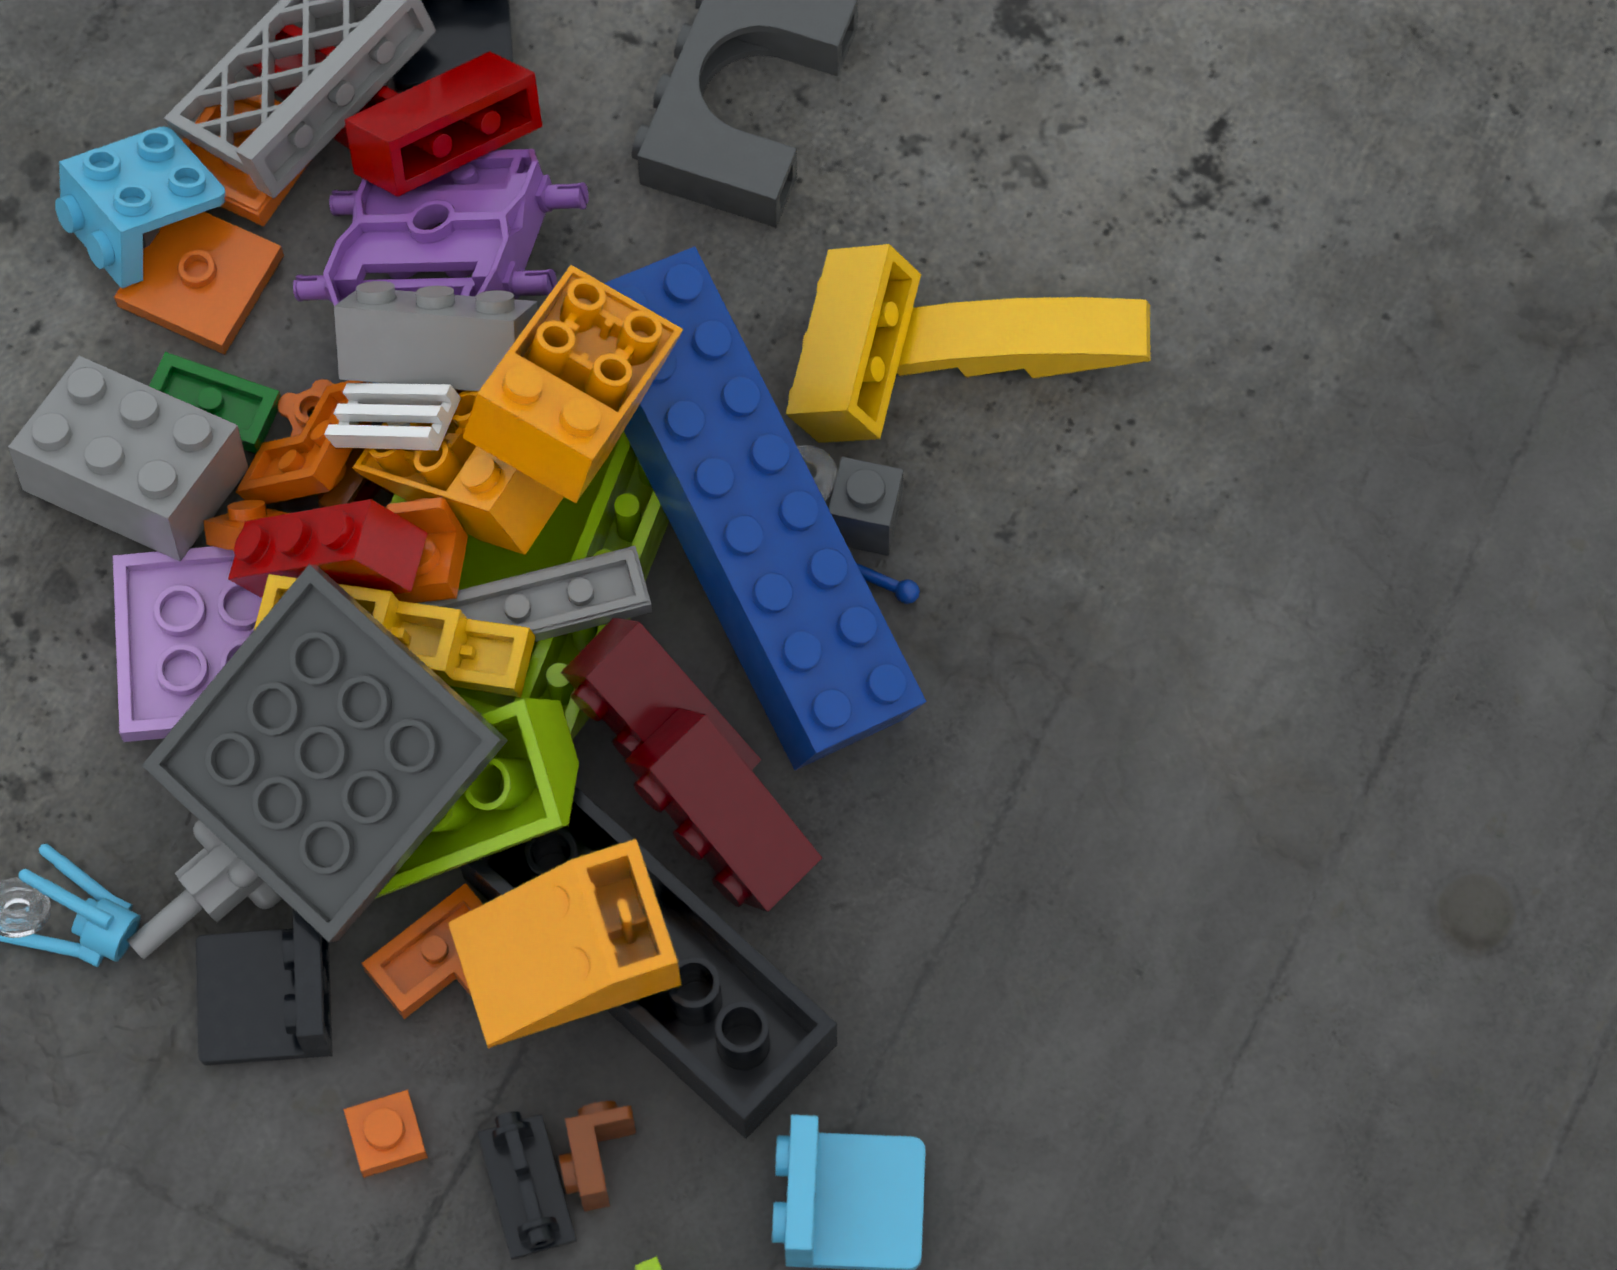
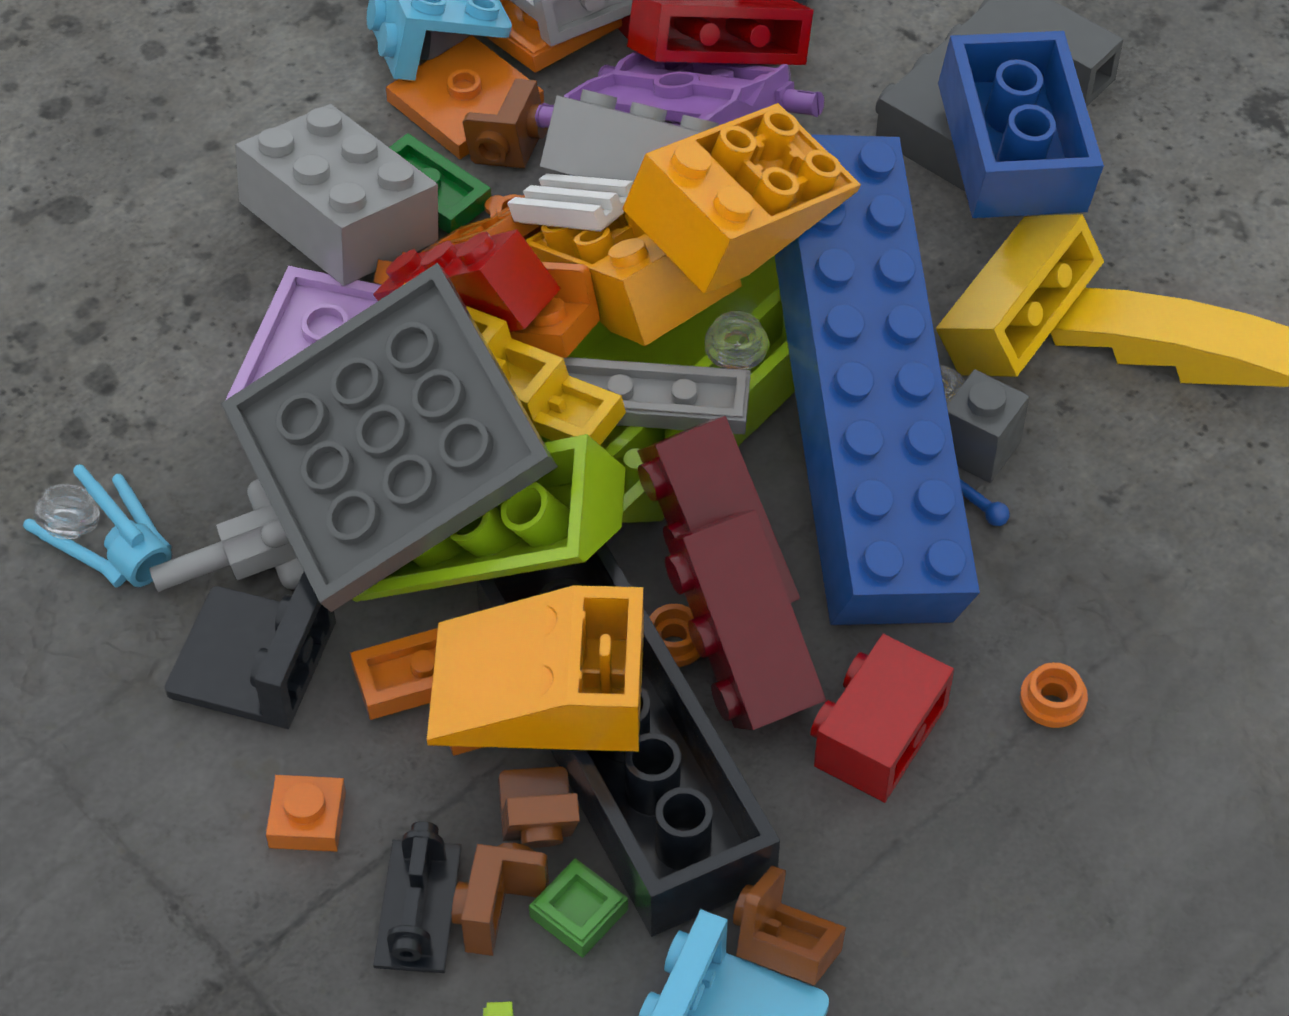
camera: 20 degrees right, 15 degrees down
(275, 316) = (509, 135): none -> dark orange bracket
(599, 1056) = (537, 806): none -> dark orange bracket
(609, 500) = (736, 341): none -> clear plate
(643, 817) = (673, 621): none -> orange plate
(670, 1134) = (578, 907): none -> bright green tile
(794, 160) = (1019, 124): none -> blue brick
(865, 1098) = (784, 936): none -> dark orange bracket
(875, 850) = (881, 716): none -> red brick
(1026, 753) = (1058, 681): none -> orange plate

